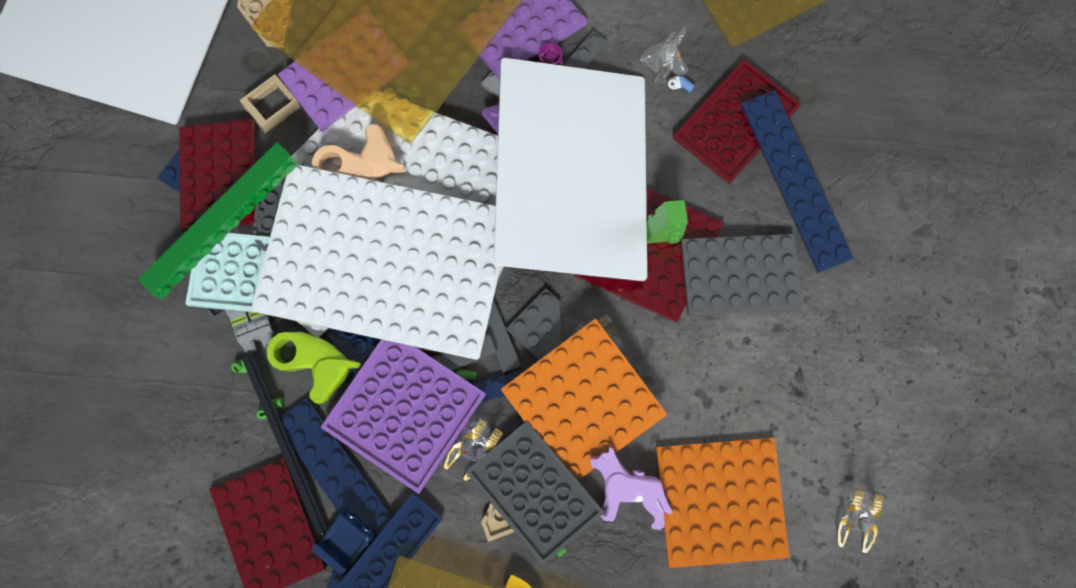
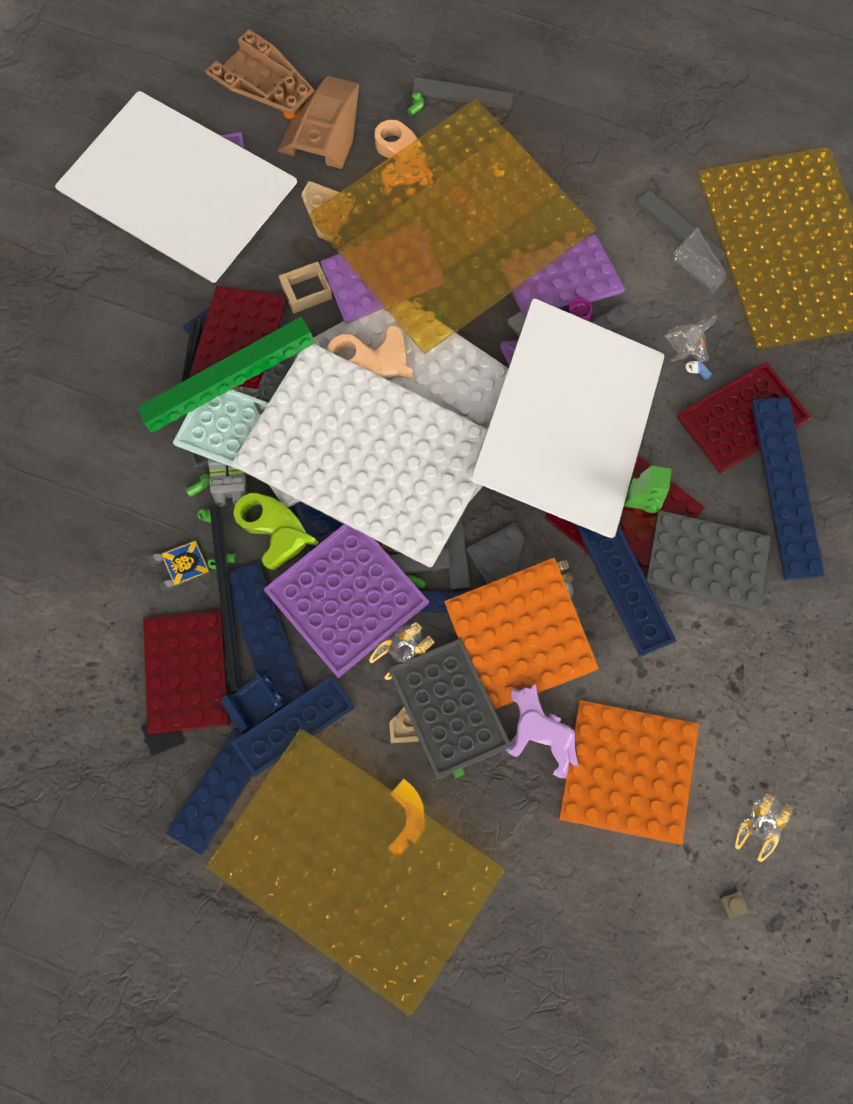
camera: 15 degrees right, 5 degrees down
(174, 200) = (193, 342): none -> black axle
(225, 338) = (199, 486): none -> bright green arm
(231, 422) = (182, 564): none -> flag
(674, 327) = (628, 591): none -> dark blue plate

